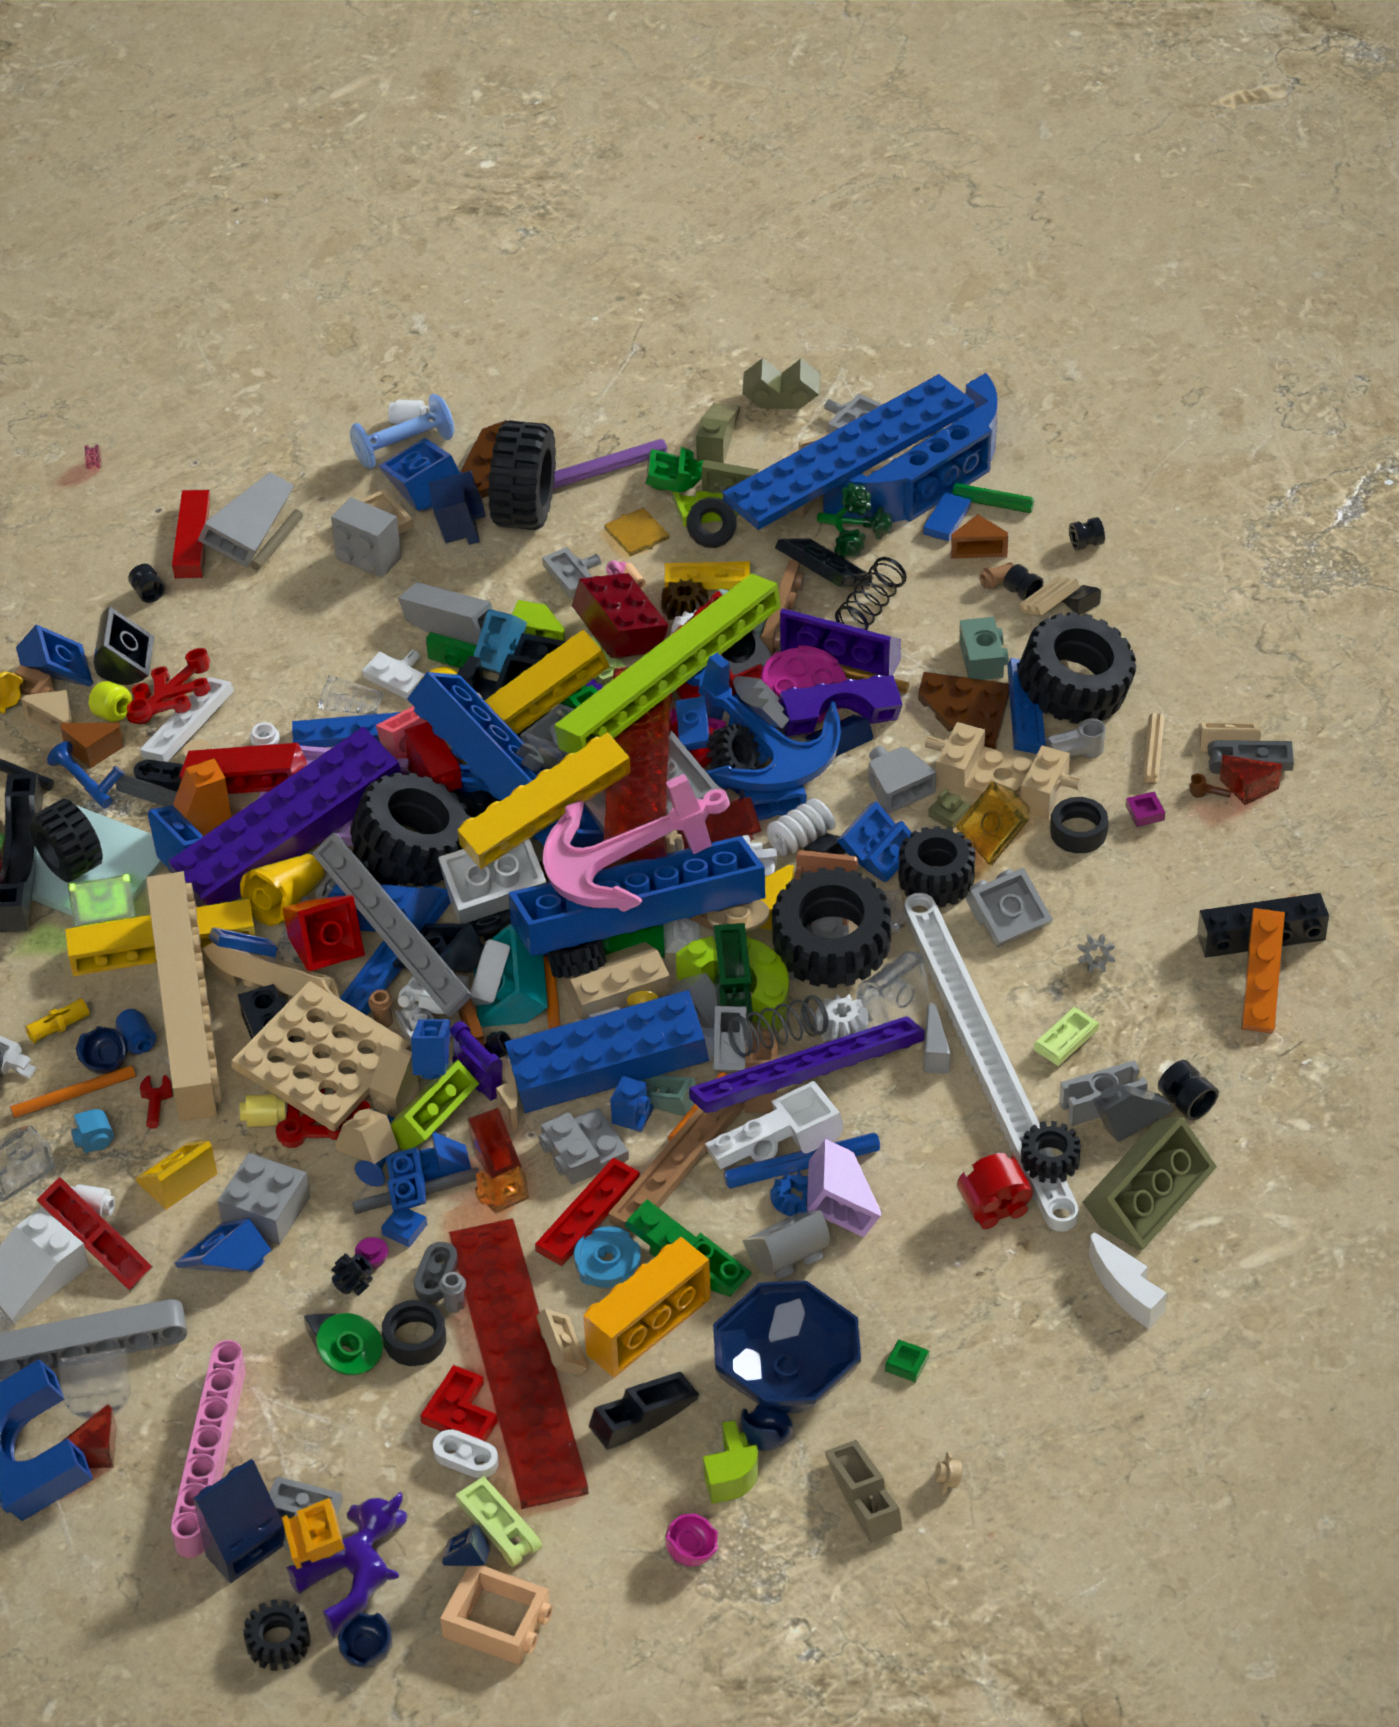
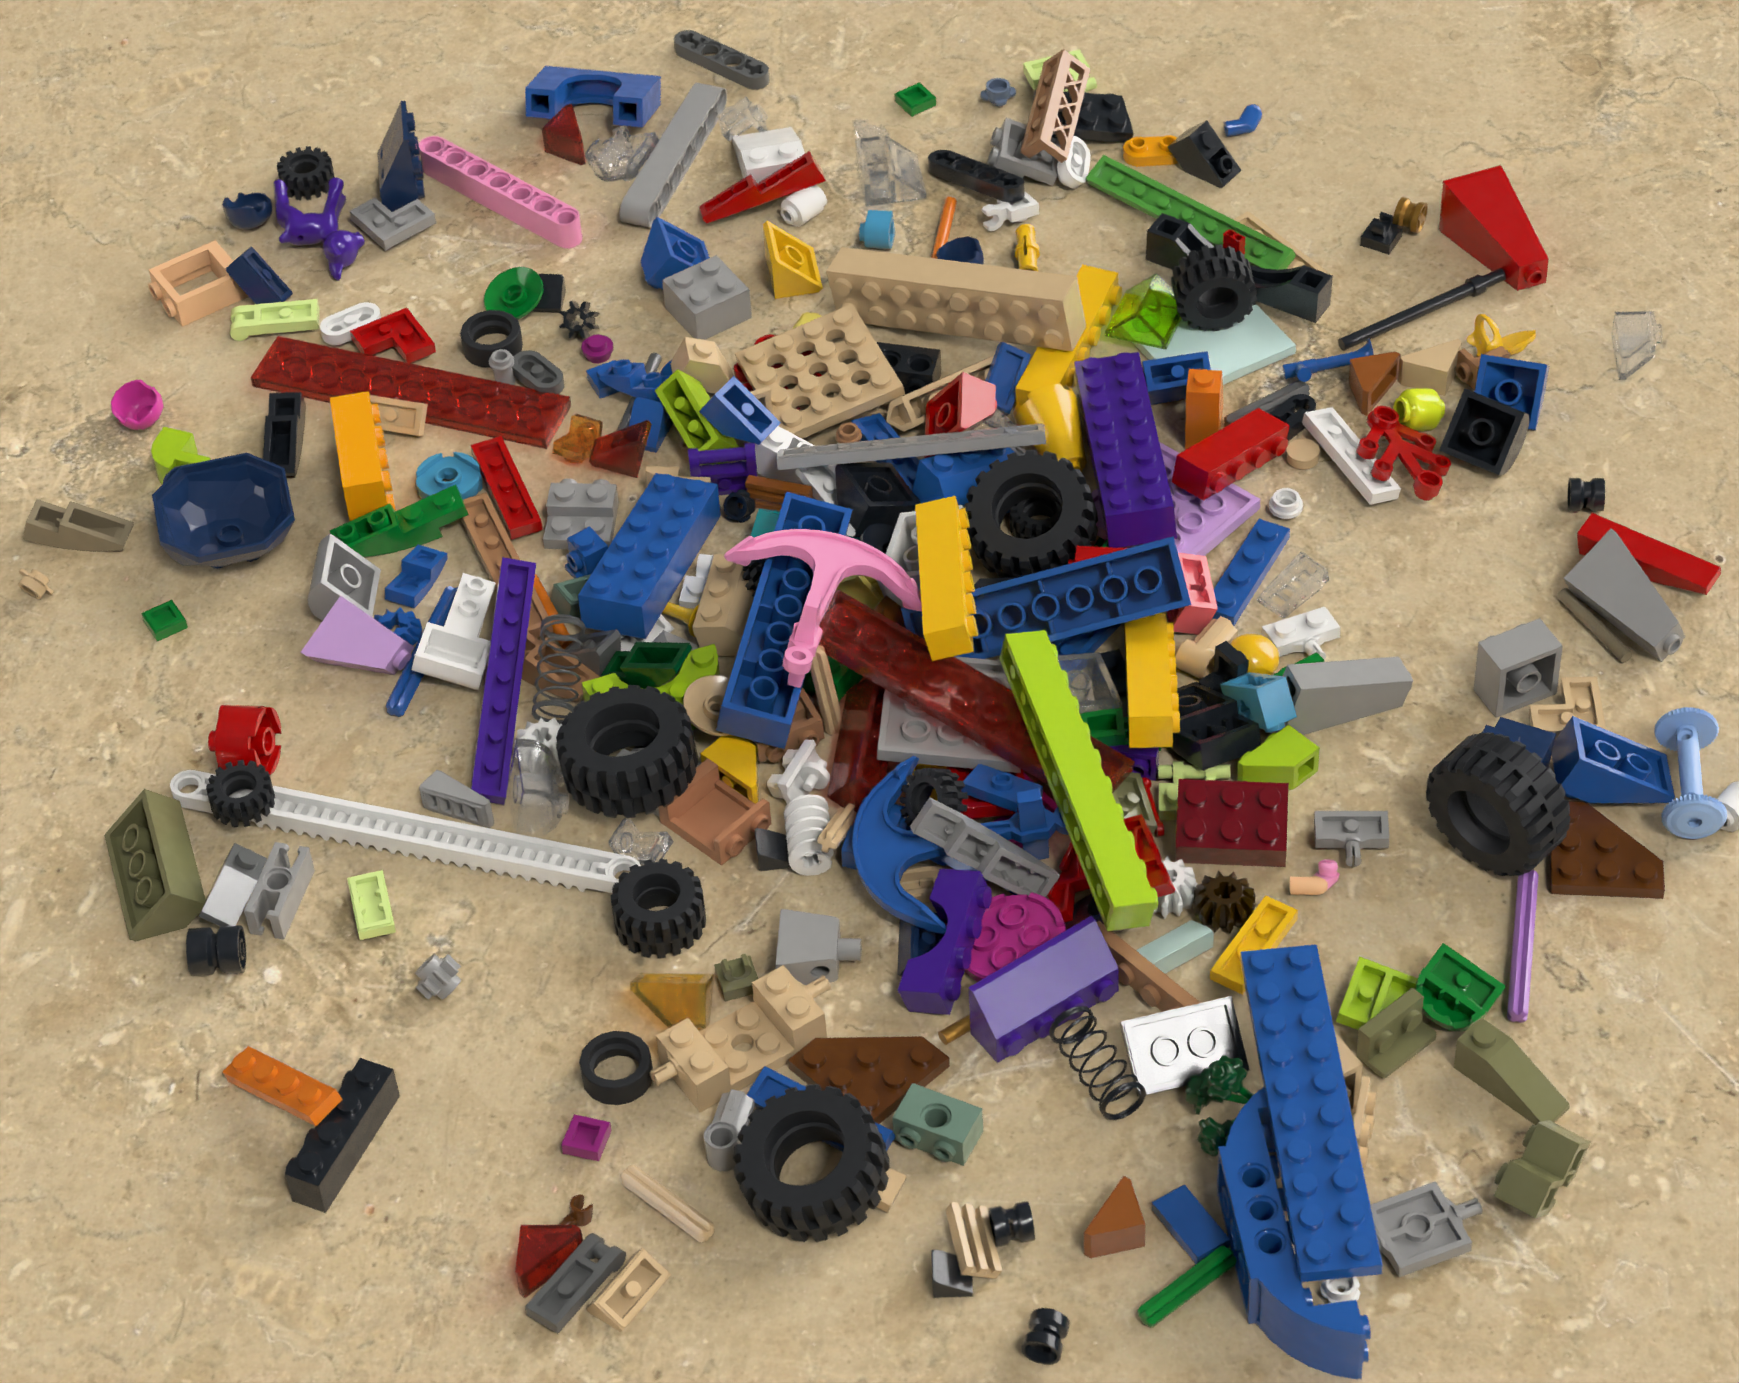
camera: 125 degrees right, 0 degrees up
(313, 1533) = (350, 197): light orange plate -> none
(533, 758) = (1028, 623): dark grey bar -> none
(636, 531) = (1387, 929): clear yellow piece -> none
(717, 506) = (1350, 974): black tyre -> none
(724, 1218) = (417, 577): none -> blue slope
(793, 799) = (837, 828): none -> tan axle
(875, 841) = (738, 886): blue slope -> none
(992, 577) = (1048, 1204): medium nougat pin -> none
(1008, 906) = (560, 941): light grey plate -> none
(1127, 1281) = (79, 792): white slope -> none

